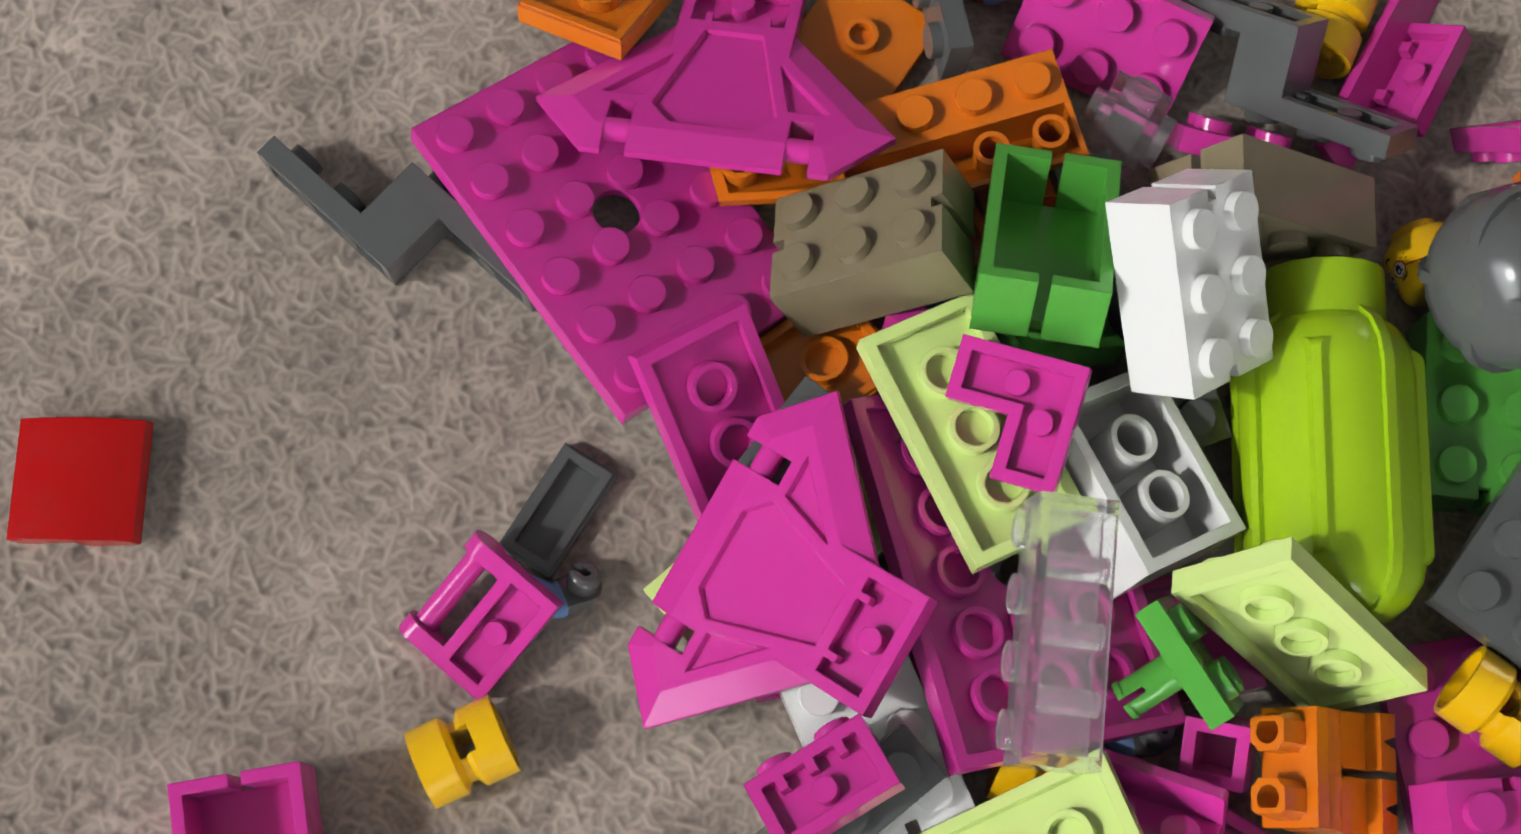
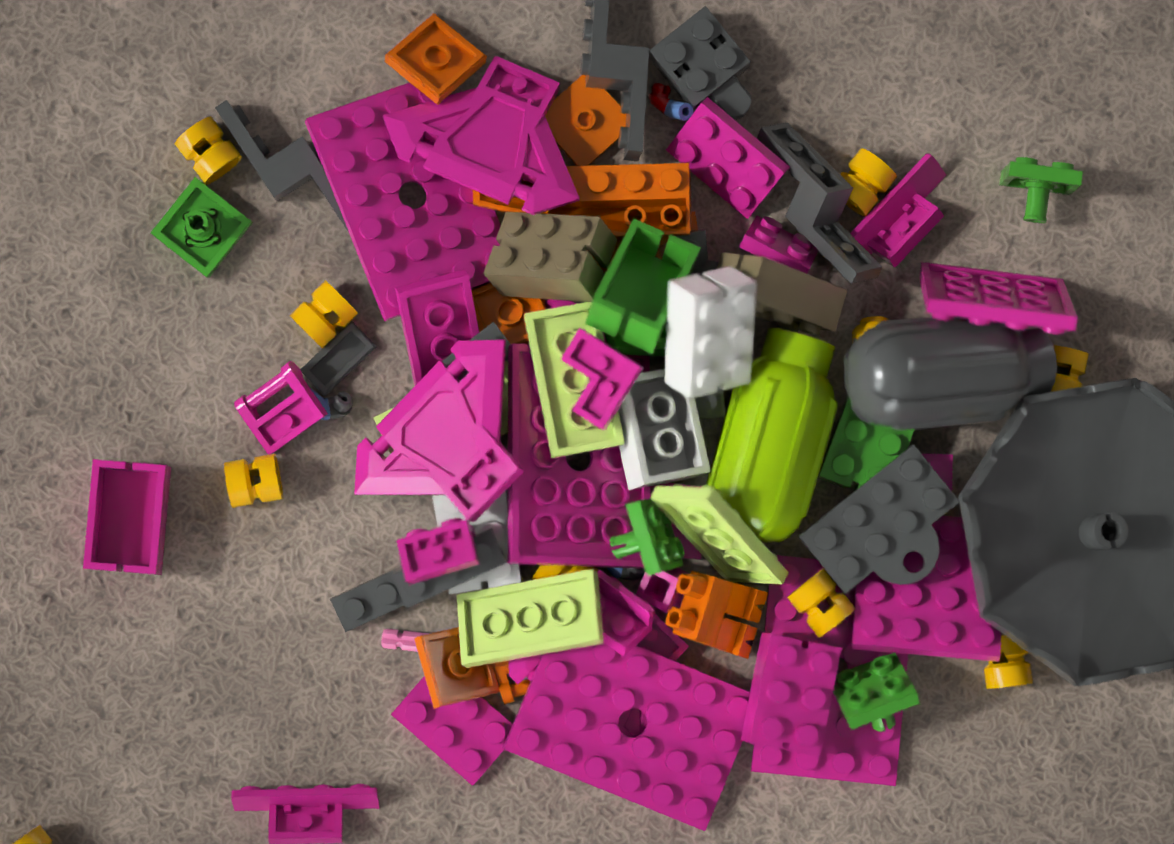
camera: 15 degrees right, 10 degrees up
(80, 481) = (74, 273): red slope -> none
(253, 219) = (217, 159): none -> yellow wheel
(264, 323) = (197, 203): none -> bright green plate
(514, 462) = (323, 314): none -> yellow wheel
(1059, 633) = (585, 503): clear brick -> none
(1129, 122) = (723, 216): clear brick -> none

